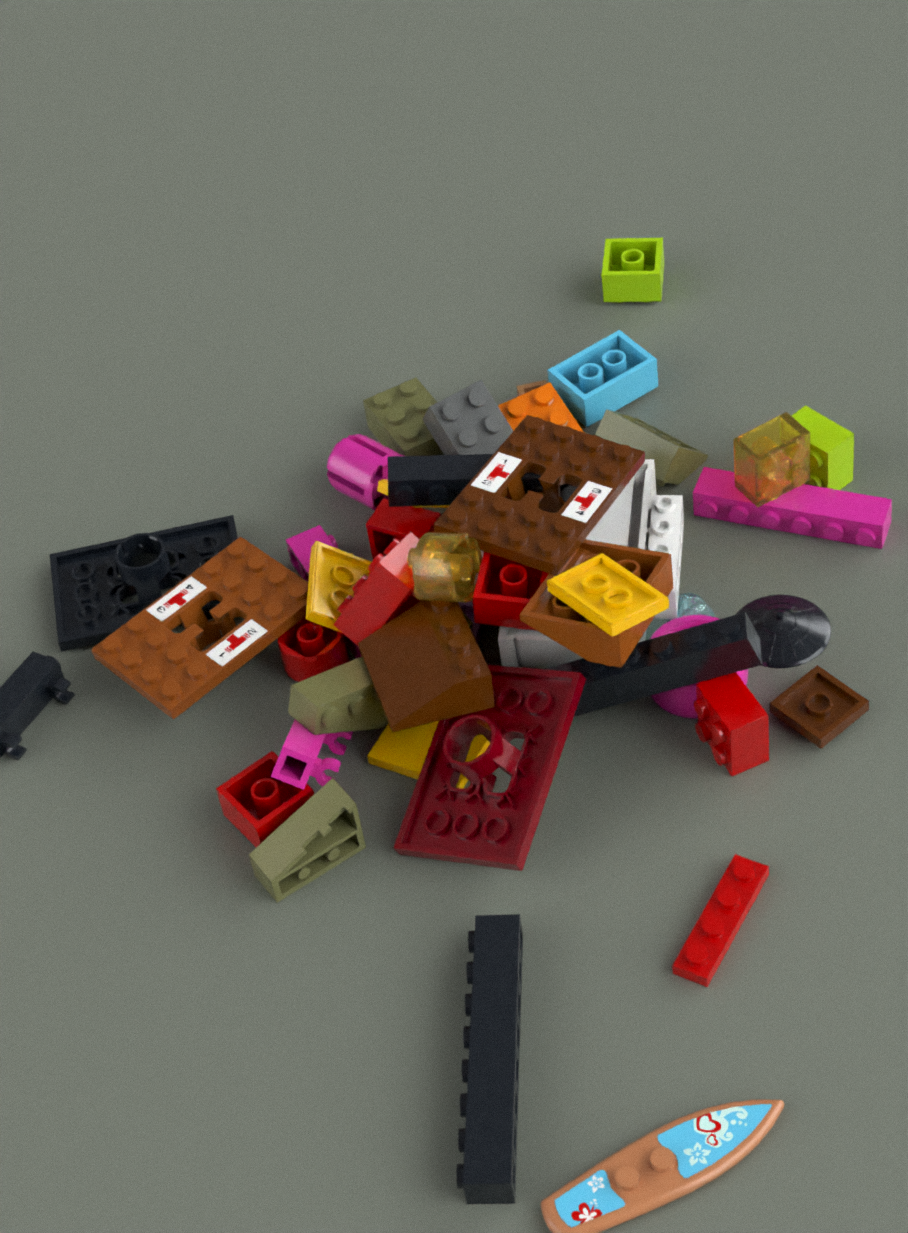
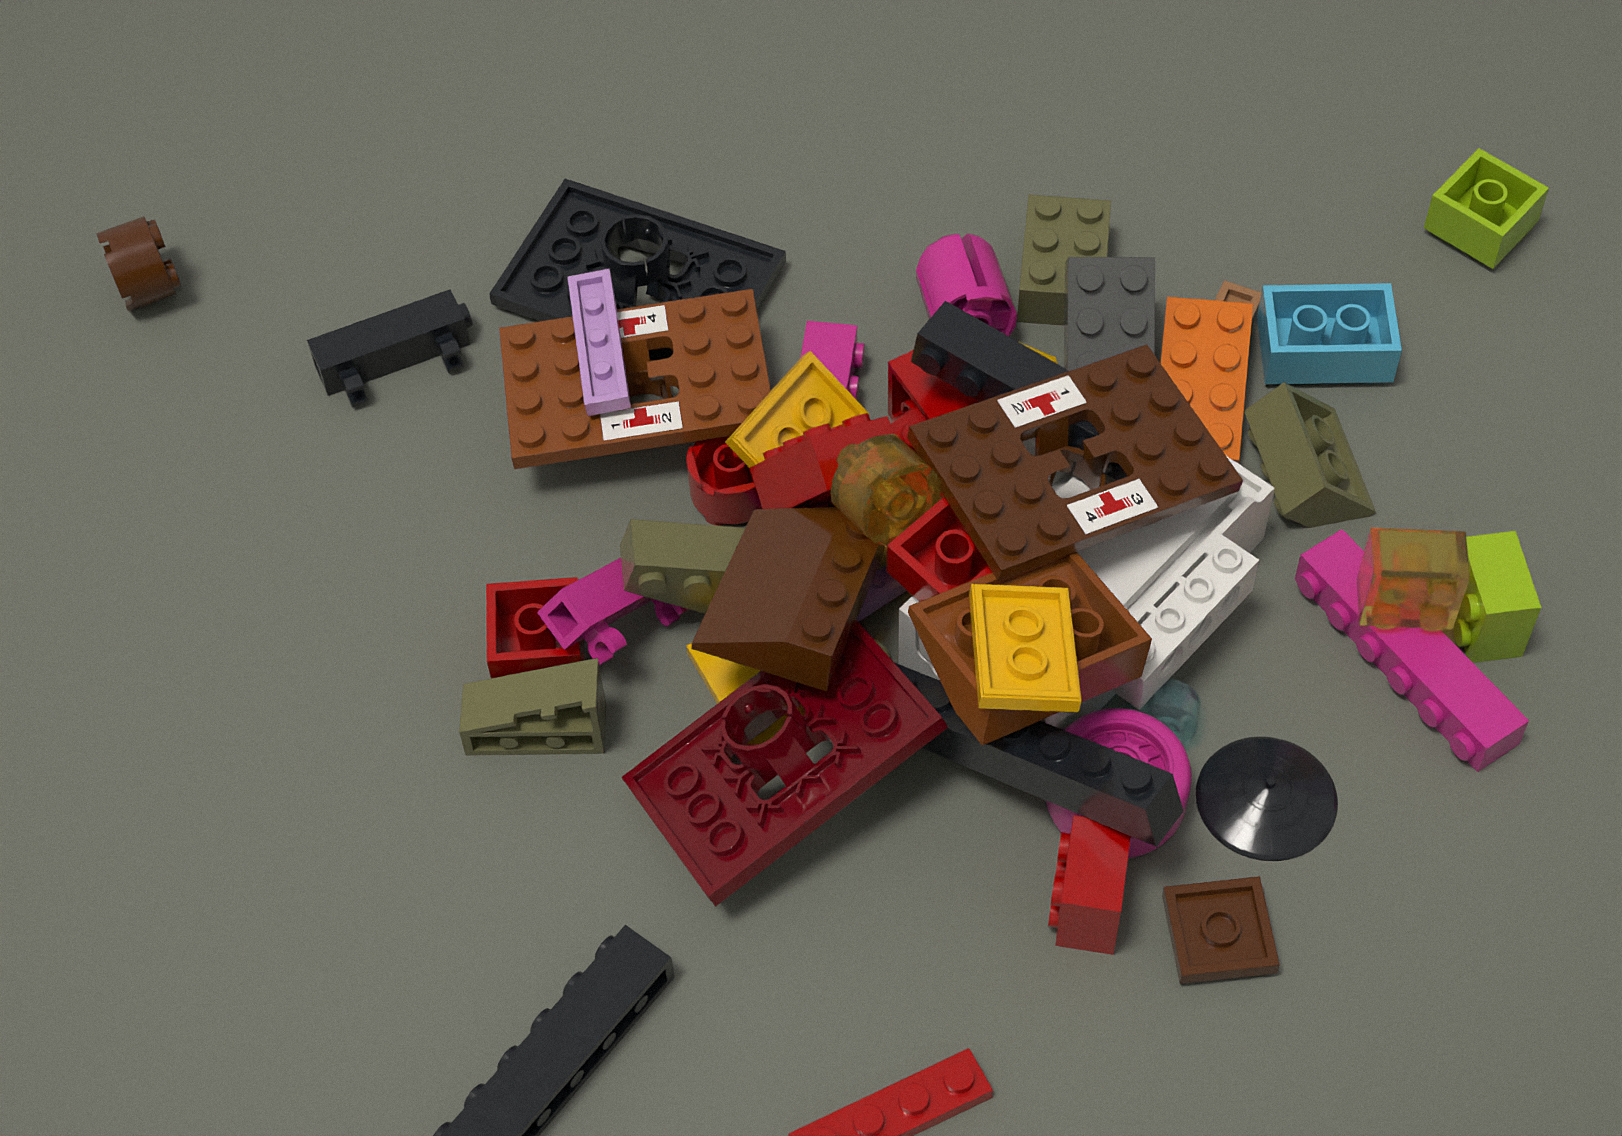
camera: 30 degrees right, 10 degrees up
(171, 614) = (598, 342): none -> lavender plate

